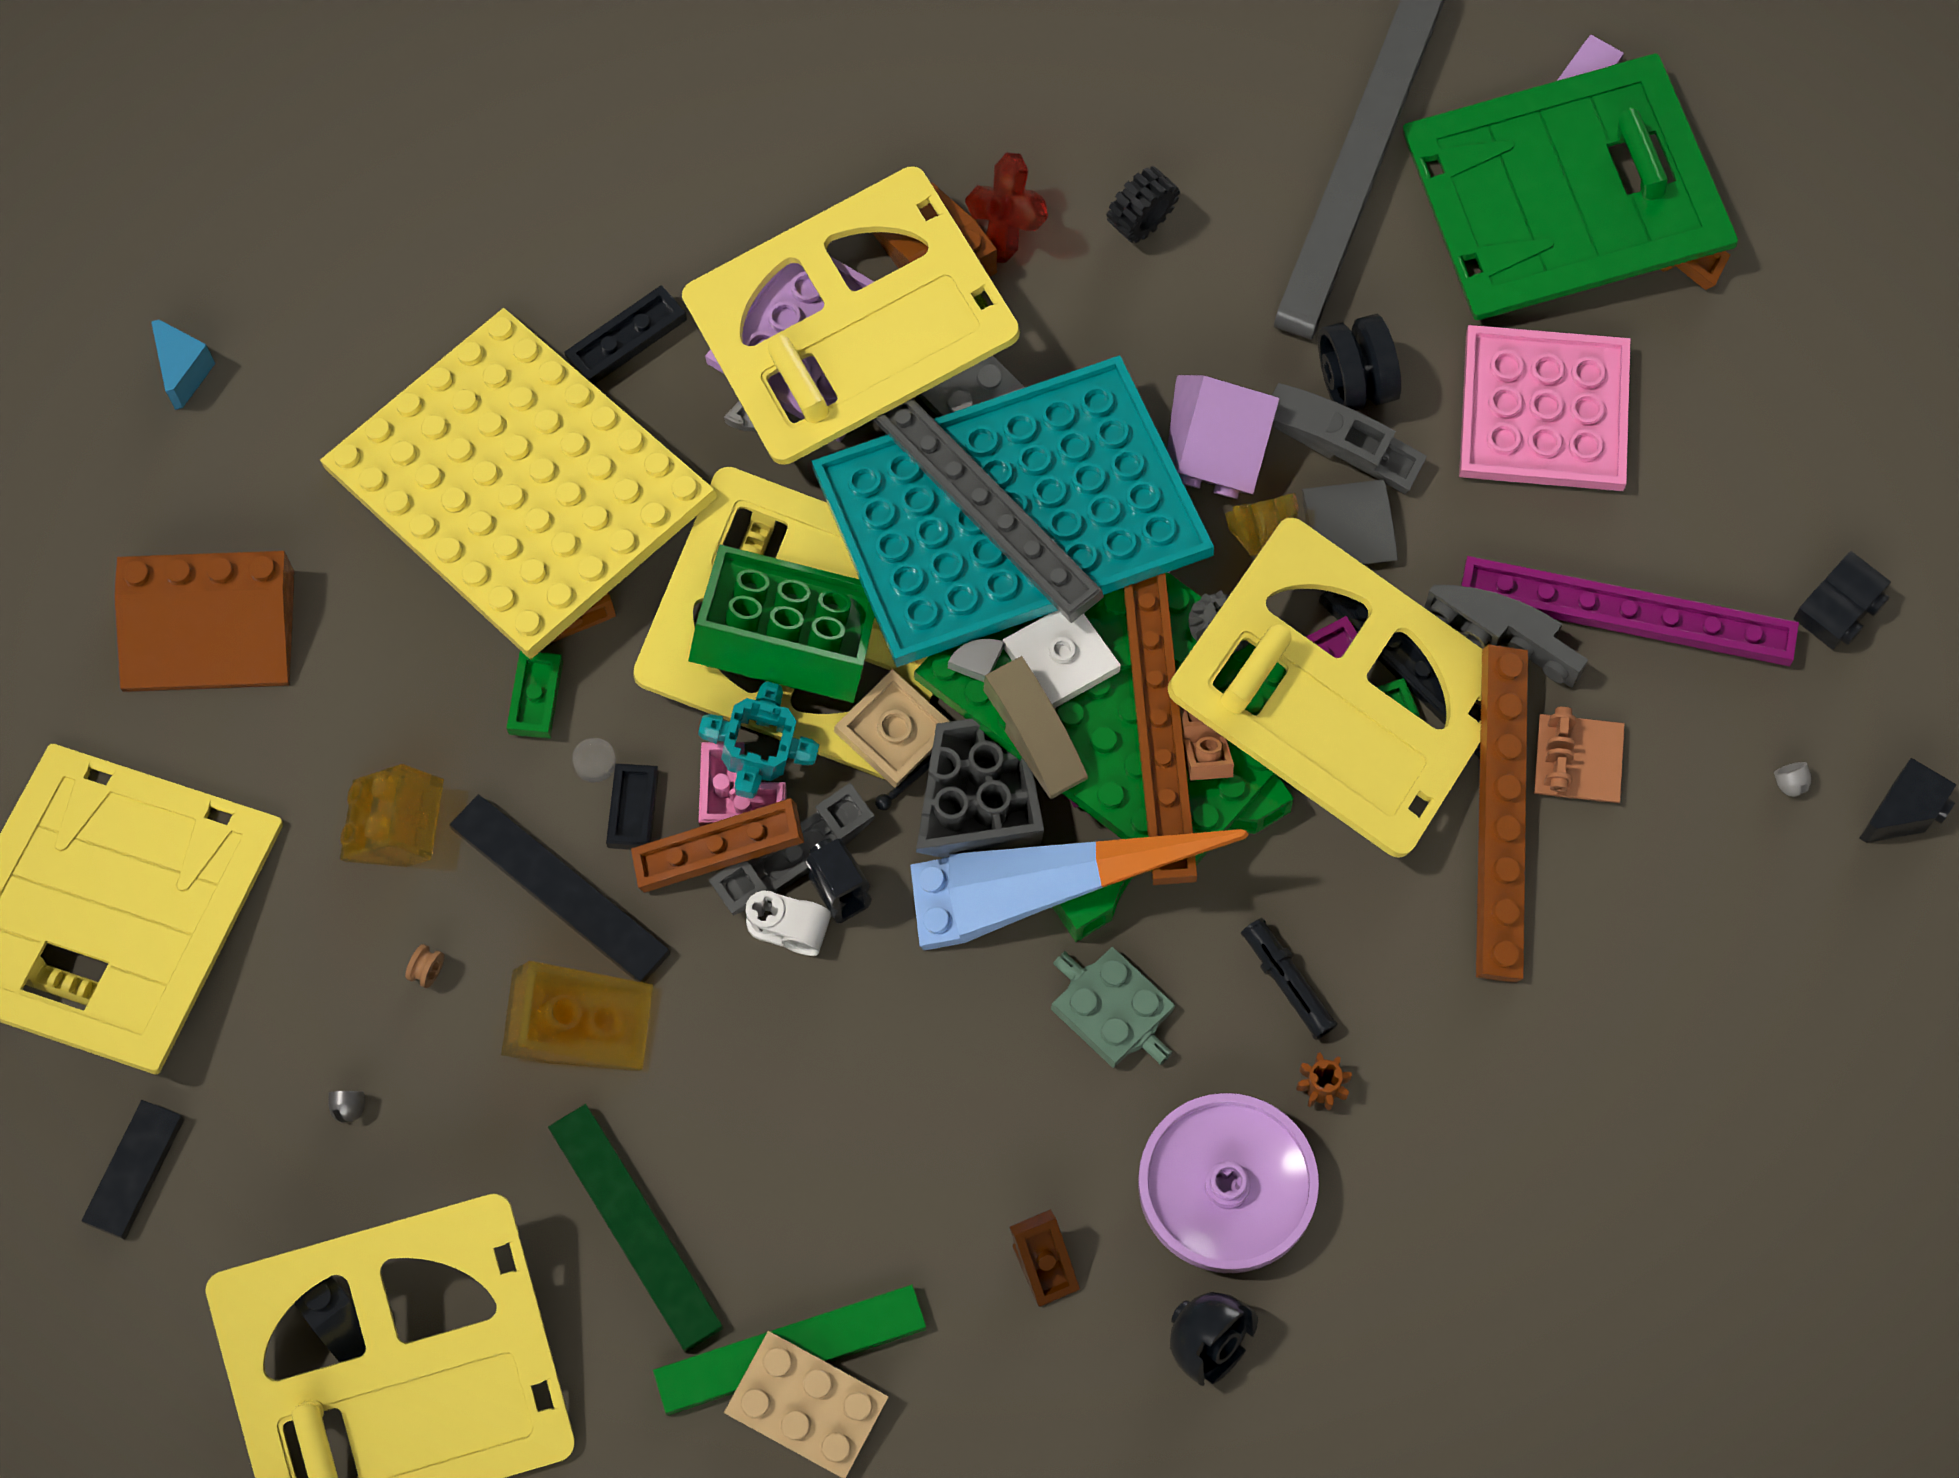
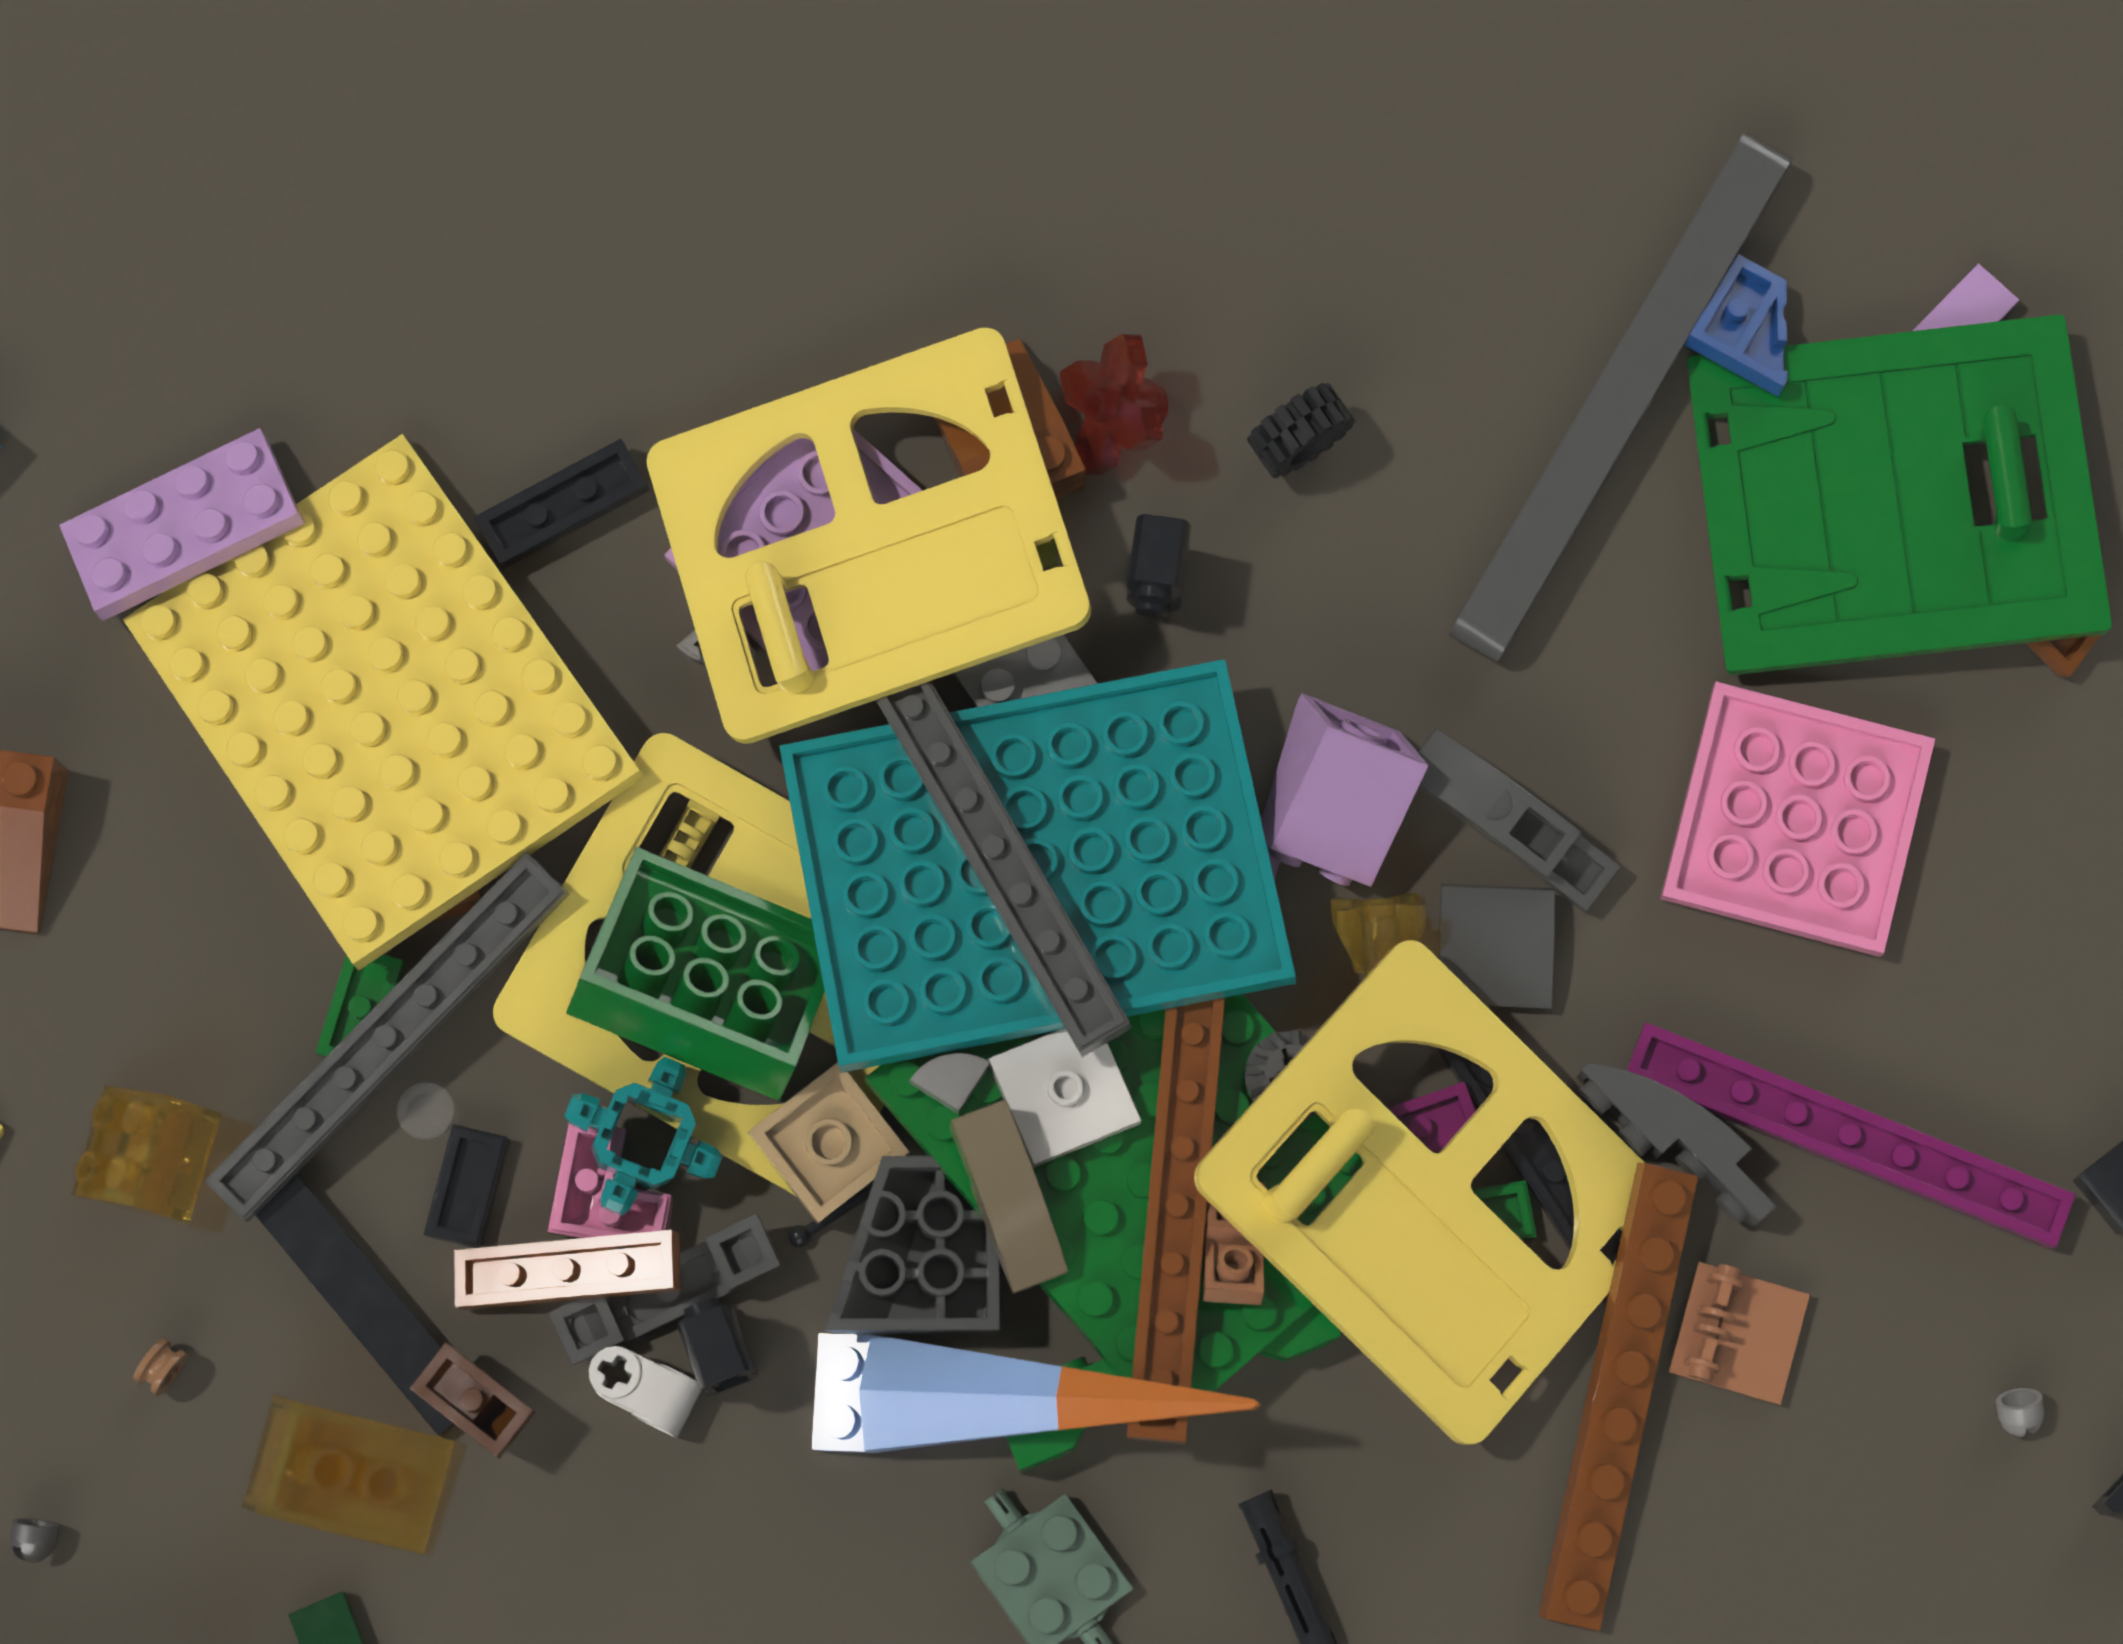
camera: 10 degrees right, 10 degrees up
(353, 389) = (181, 524): none -> lavender plate
(557, 705) = (387, 1037): none -> dark grey tile
(663, 946) = (472, 1400): none -> reddish brown slope
(1059, 304) = (1158, 564): none -> black brick
(1360, 362) = (1558, 720): black wheel -> none
(1439, 95) = (1746, 325): none -> blue wing

